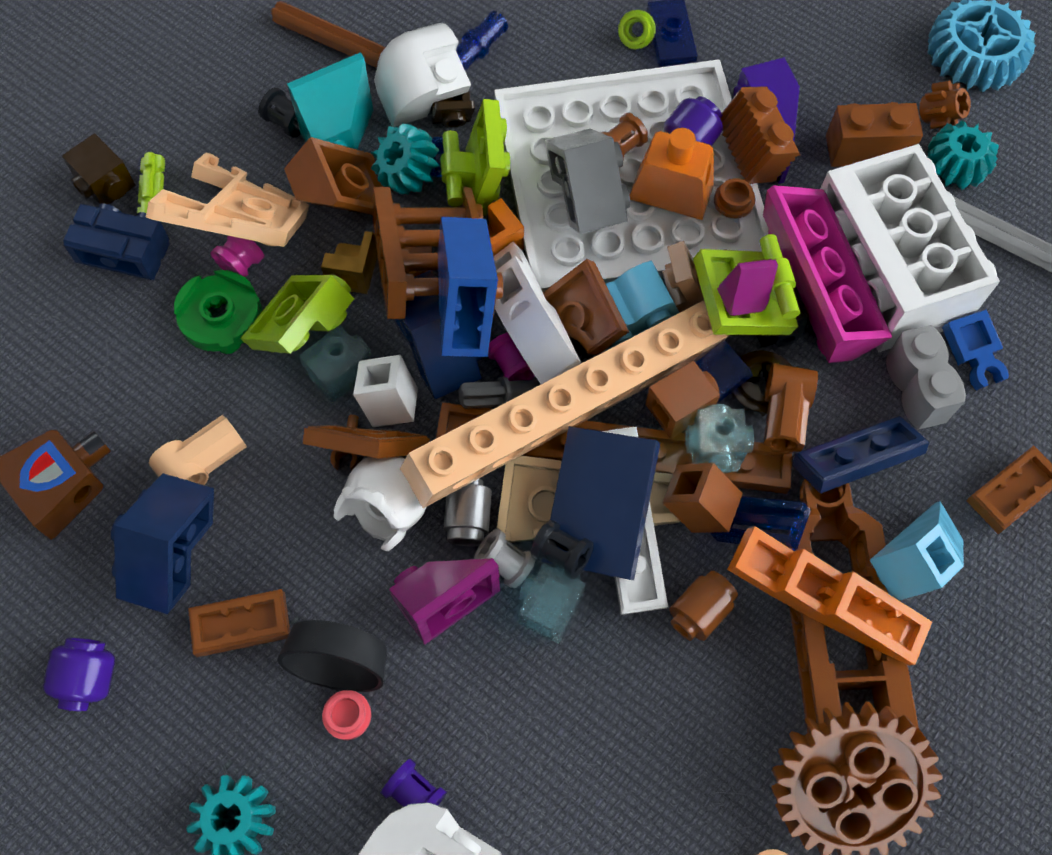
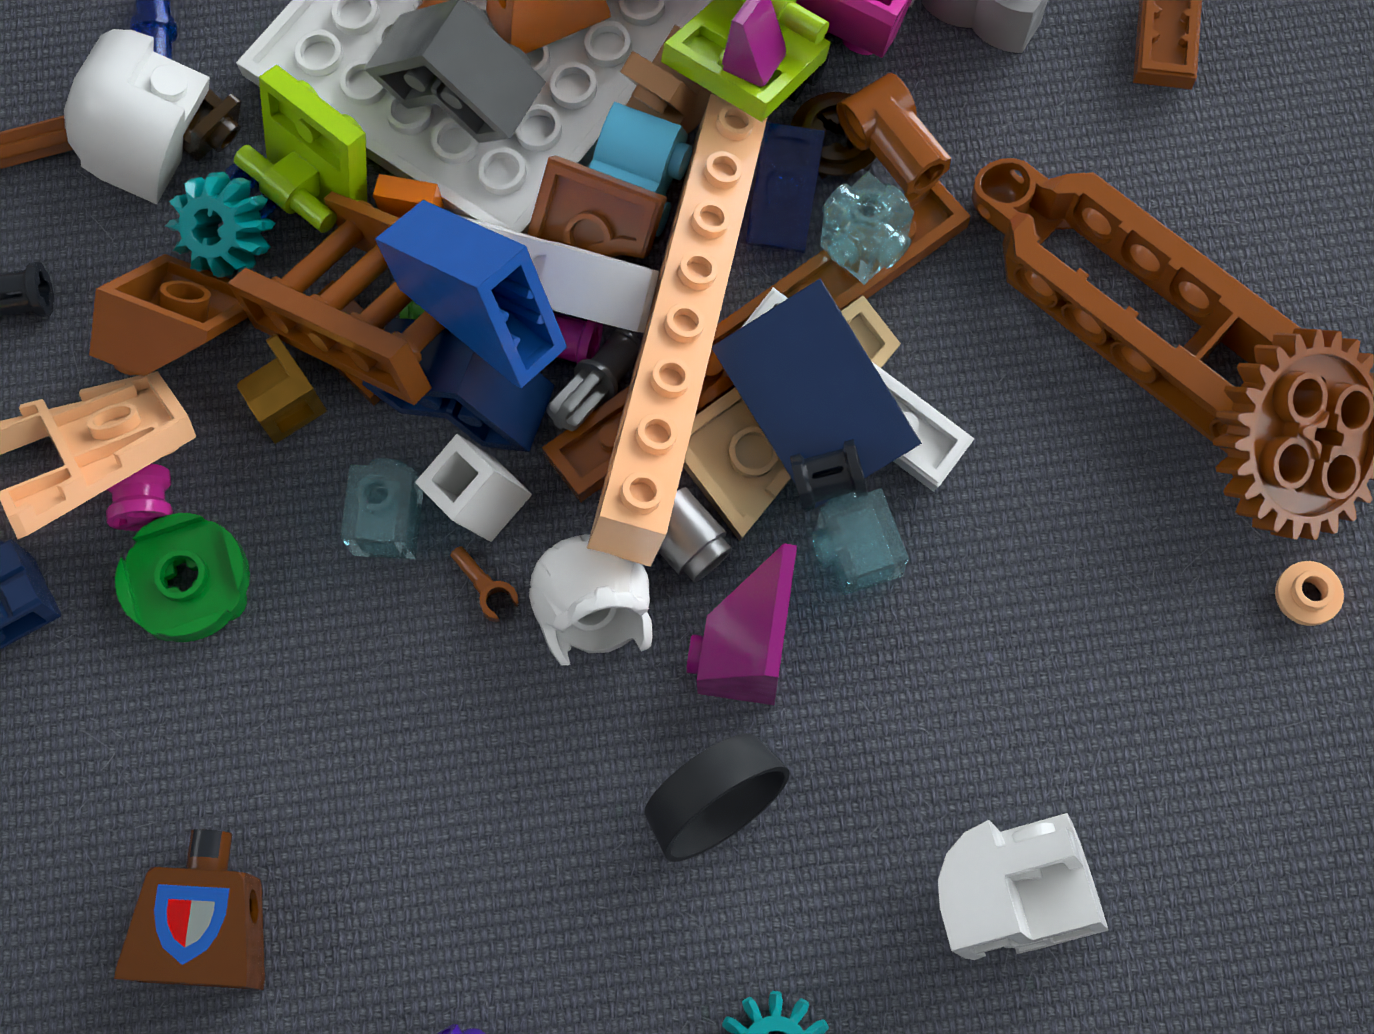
camera: 40 degrees left, 5 degrees up
(157, 540) = (403, 866): dark blue brick -> none
(199, 453) = (335, 765): light nougat piece -> none
(239, 623) = (570, 866): dark orange plate -> none
(299, 306) = (287, 494): lime plate -> none
(334, 102) = (71, 234): teal slope -> none
(346, 715) = (775, 844): coral plate -> none
(364, 442) = (520, 553): dark orange tile -> none
(411, 787) = (916, 847): dark purple bush -> none
(512, 562) = (757, 540): light grey bush -> none
(680, 395) = (788, 218): dark orange brick -> none
(702, 498) = (904, 300): dark orange brick -> none
(703, 606) = (1004, 407): dark orange brick -> none
(796, 523) = (966, 256): clear blue tile -> none
(830, 597) = (1117, 284): orange slope -> none
(860, 454) = (1002, 123): dark blue tile -> none
(921, 555) = (1162, 169): medium azure slope -> none

